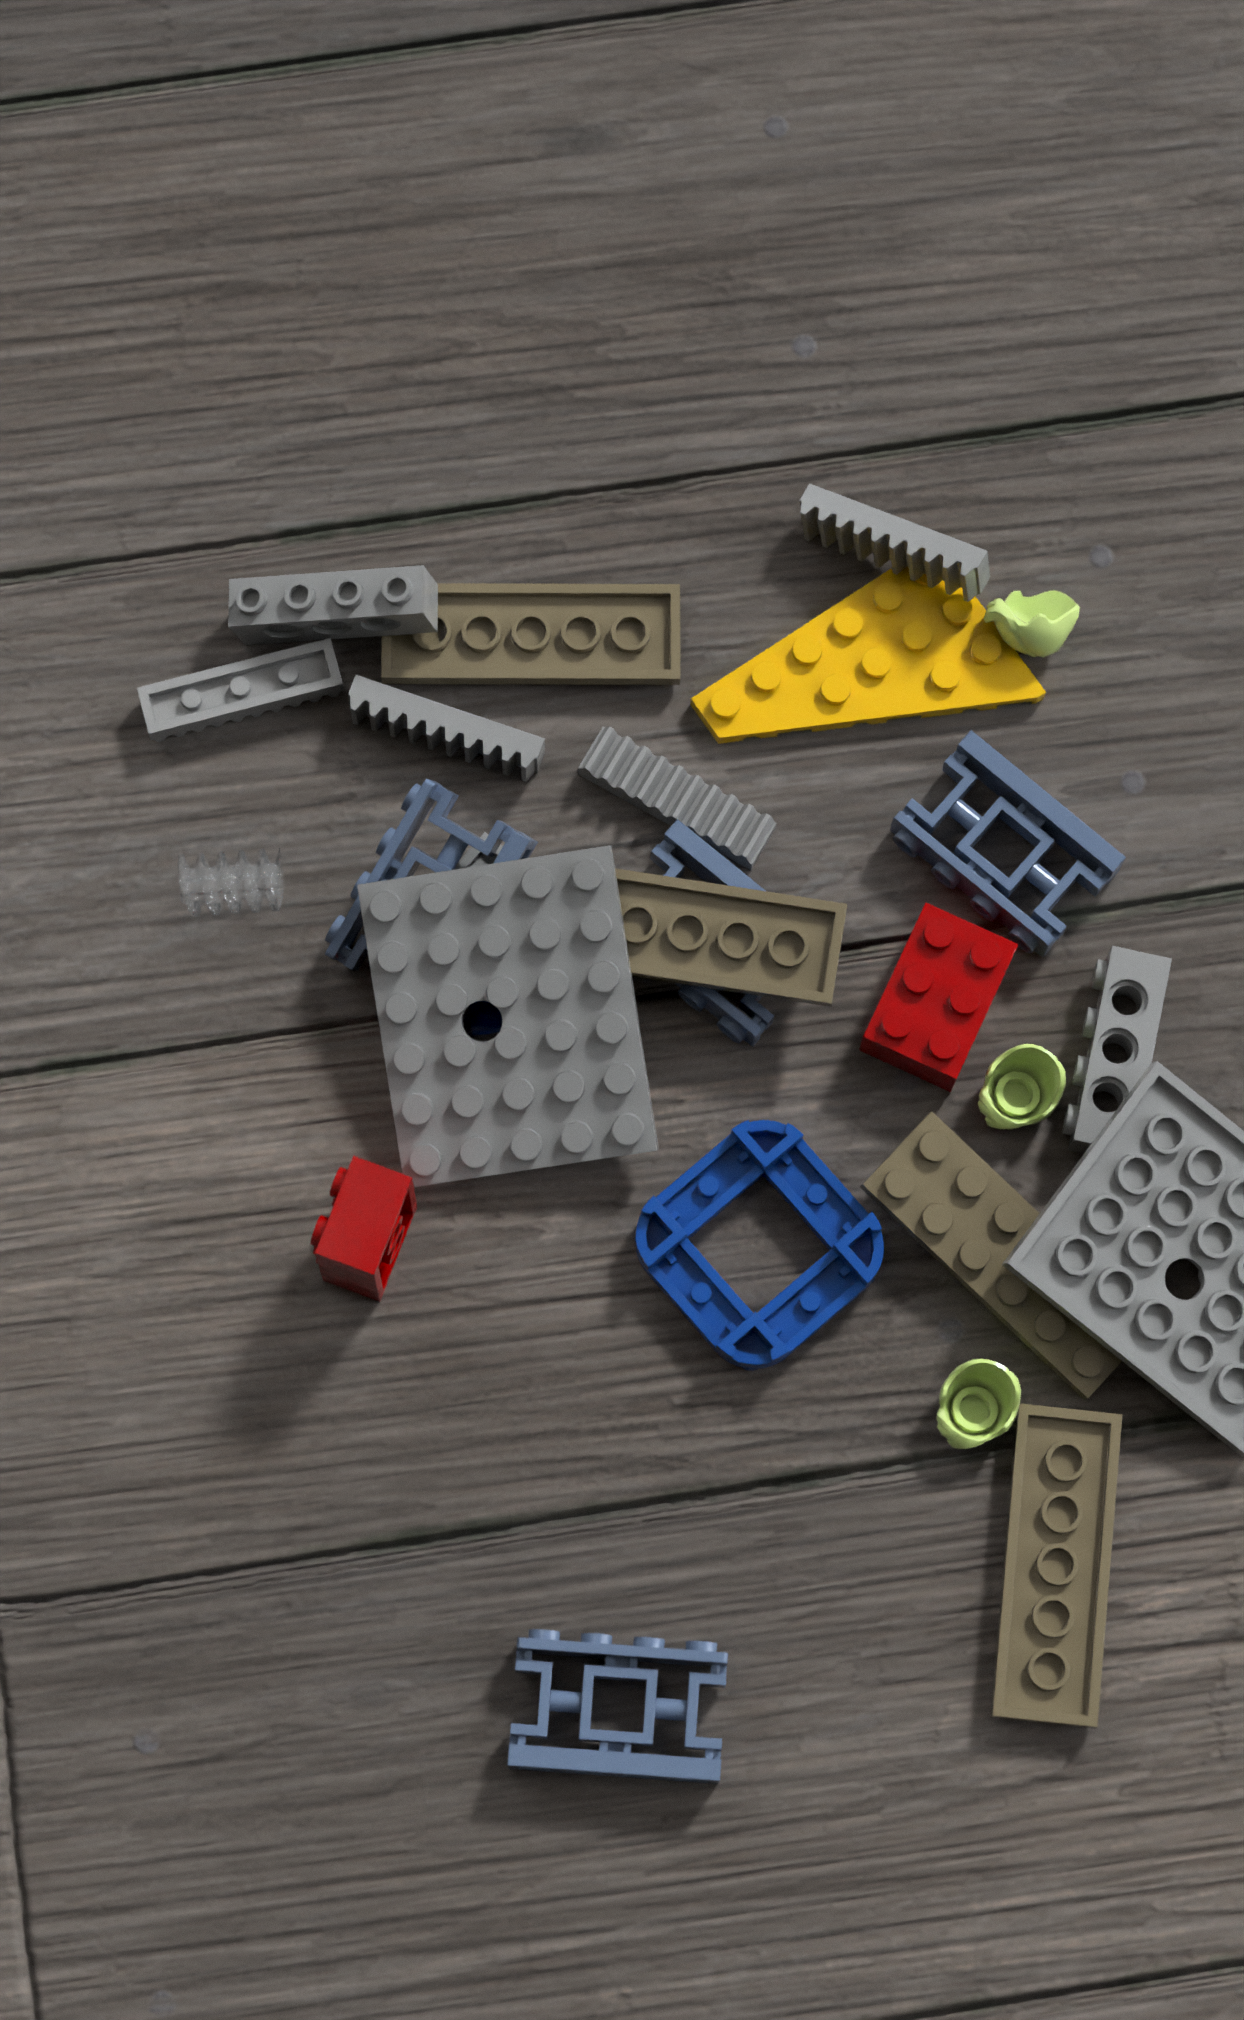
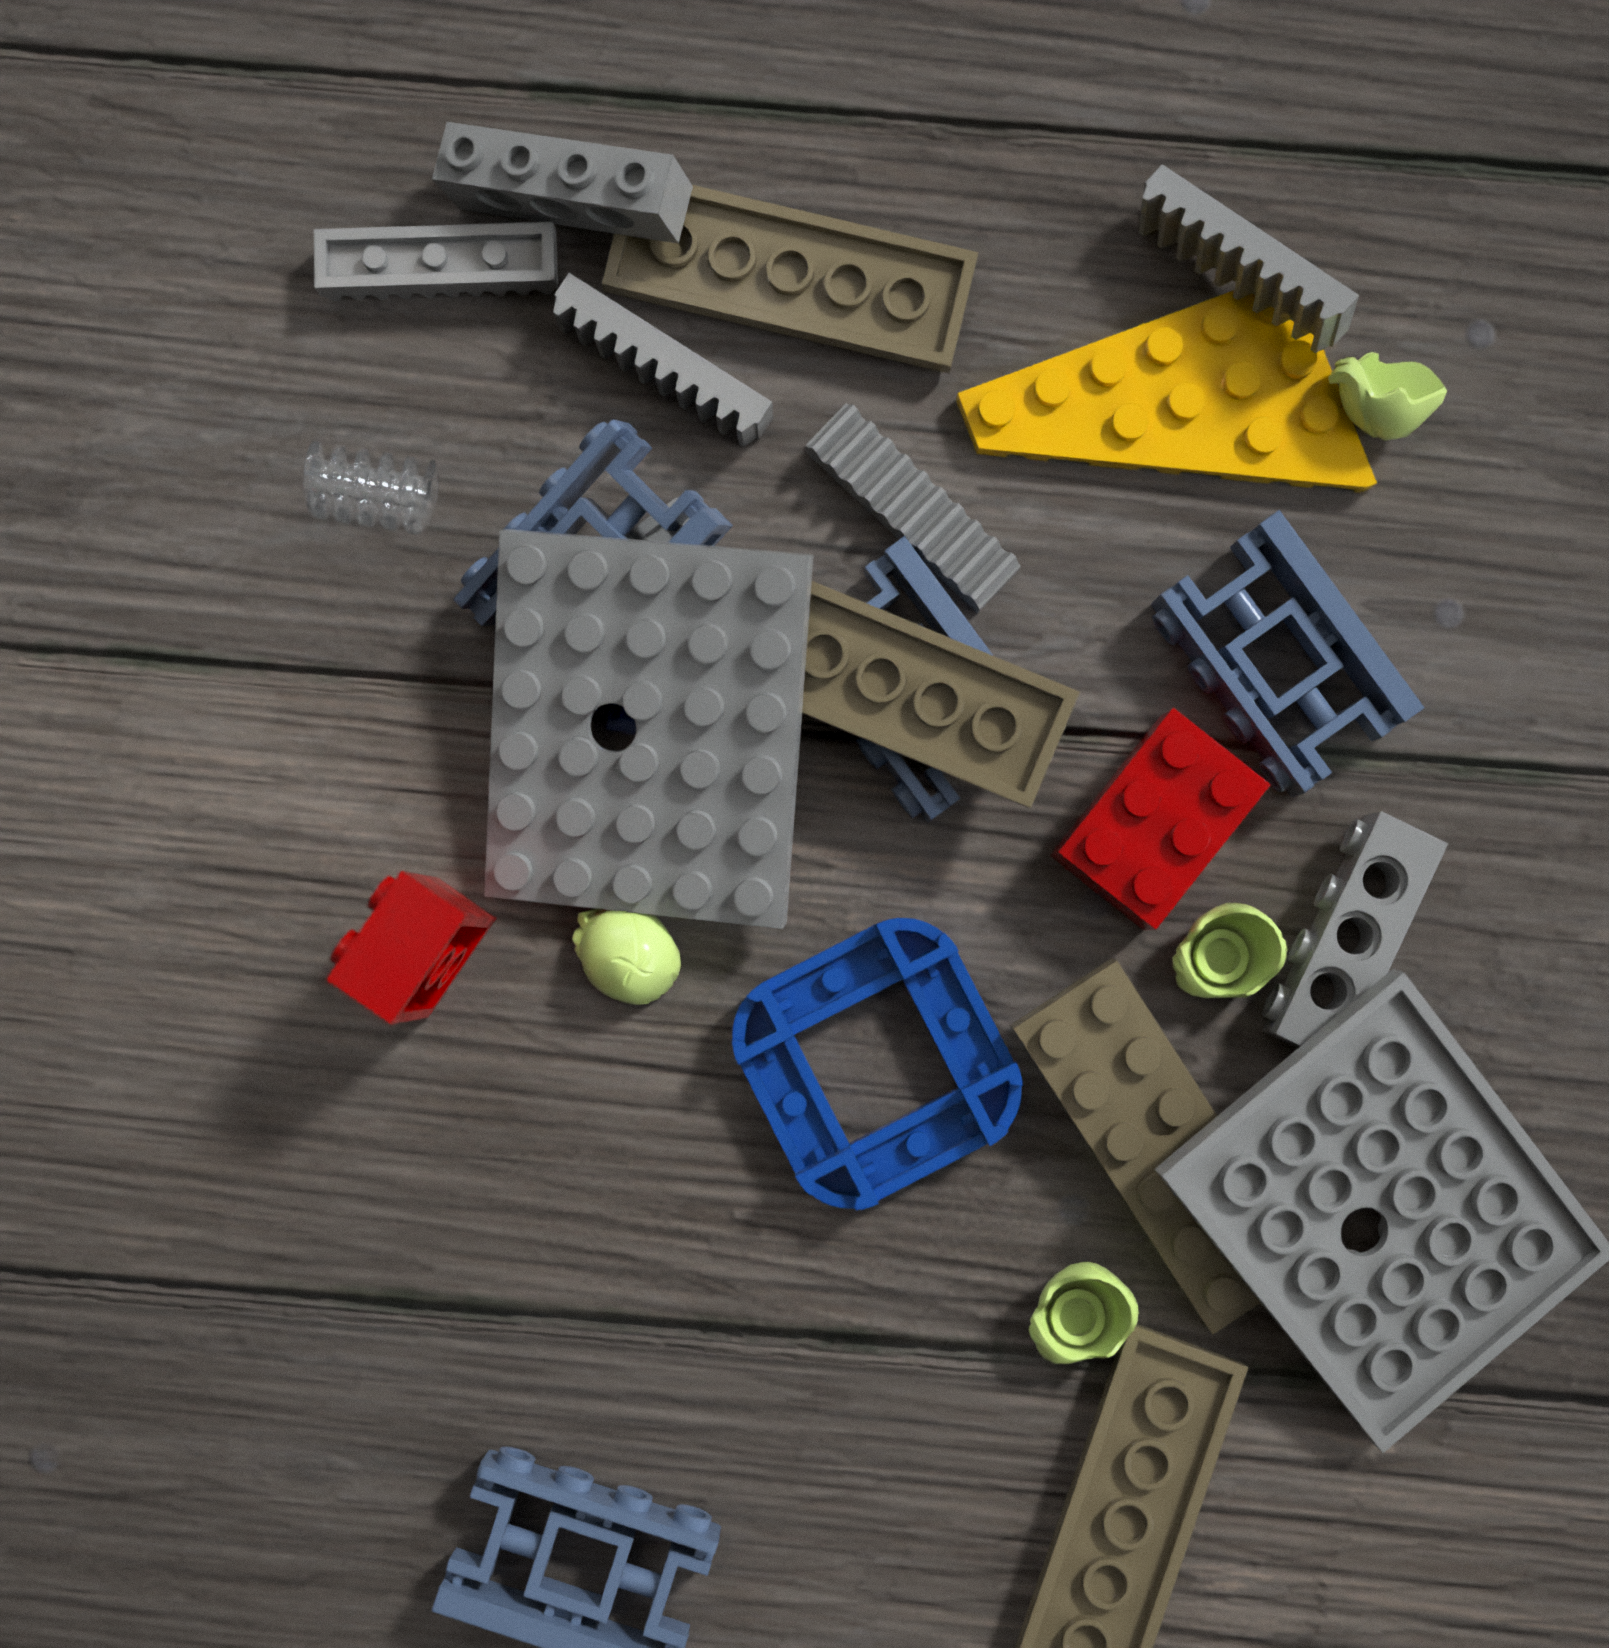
camera: 20 degrees right, 10 degrees up
(533, 1208) = (626, 954): none -> yellowish green hair

